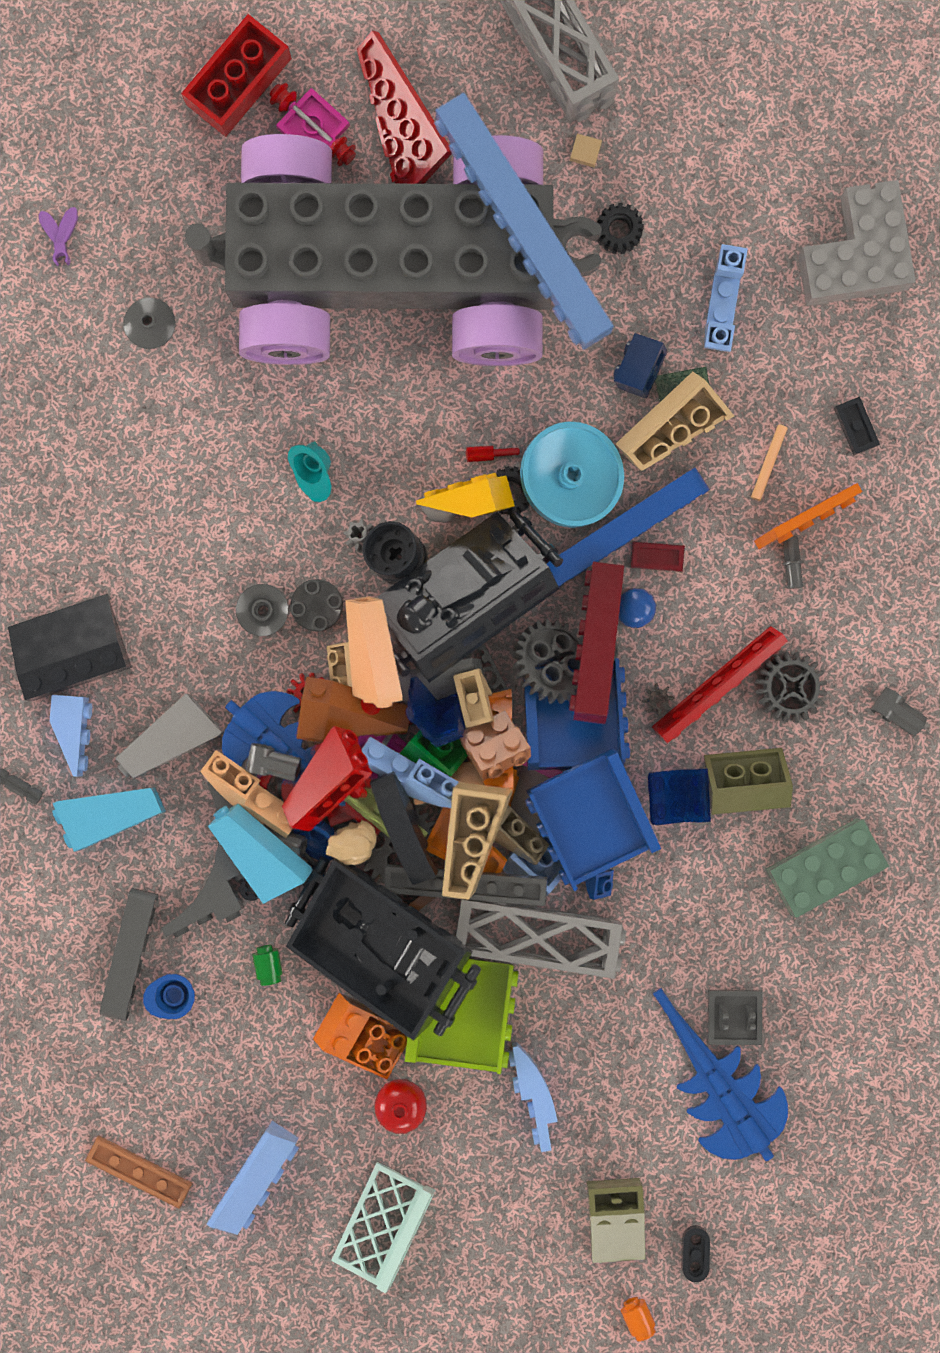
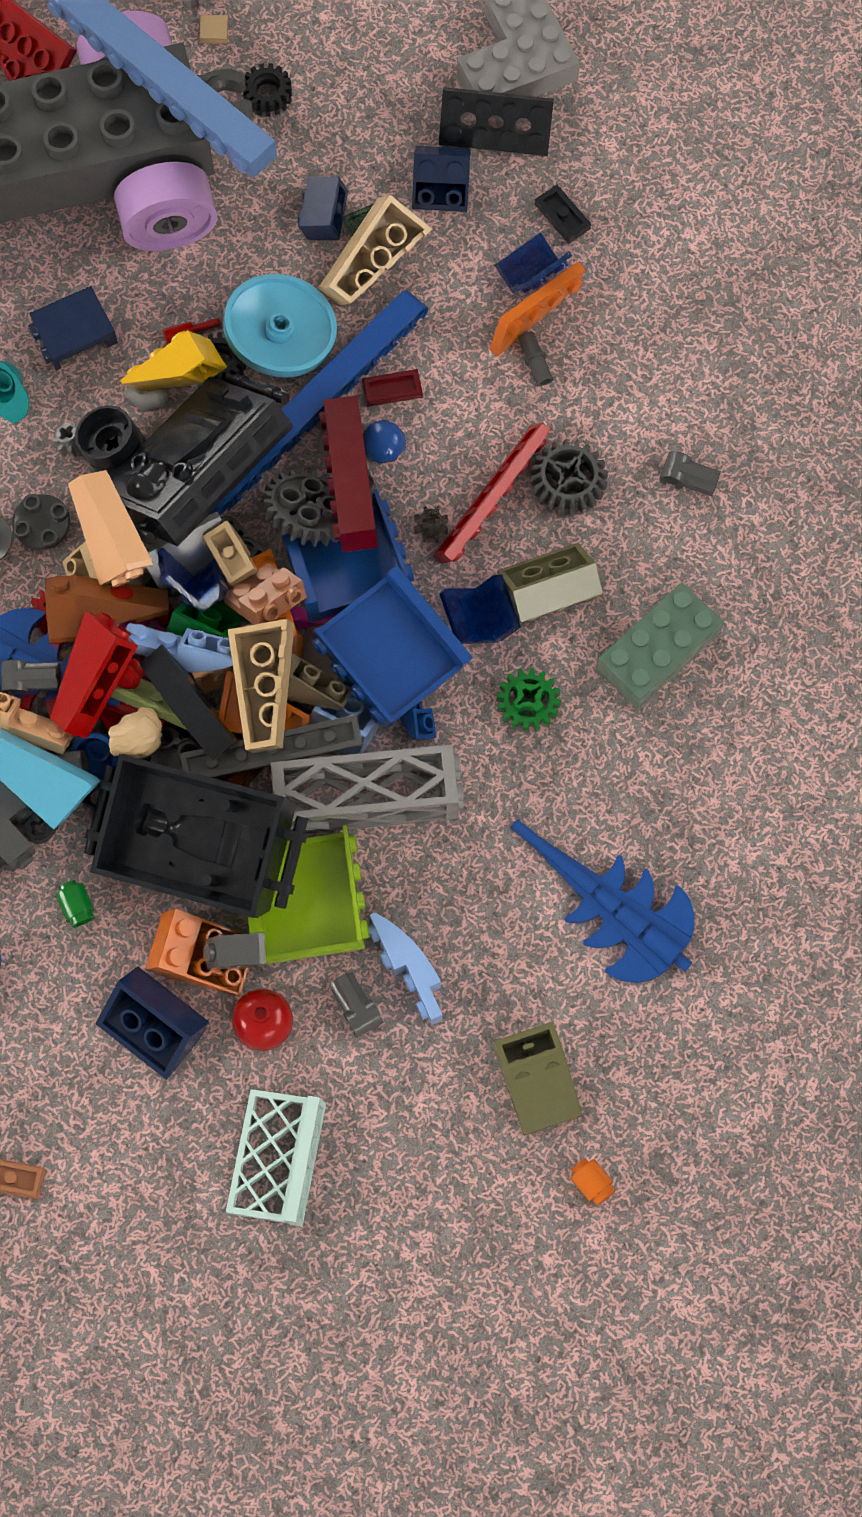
camera: 15 degrees left, 15 degrees down
(253, 1179) = (113, 1136): light blue slope -> none
(308, 1086) = (151, 1022): none -> dark blue slope
(385, 425) = (71, 326): none -> dark blue panel
(391, 1055) = (235, 951): none -> dark grey slope
(483, 1122) = (358, 1009): none -> dark grey piece
(695, 1252) = (637, 1093): black plate -> none
(704, 896) = (523, 687): none -> green gear
(723, 298) = (391, 123): light blue slope -> none
(734, 1017) = (607, 827): dark grey plate -> none
(756, 361) = (441, 178): none -> dark blue slope
(769, 462) = (483, 270): light nougat bar -> none
(816, 474) = (529, 264): none -> clear blue bracket
(817, 304) = (509, 108): none -> black plate

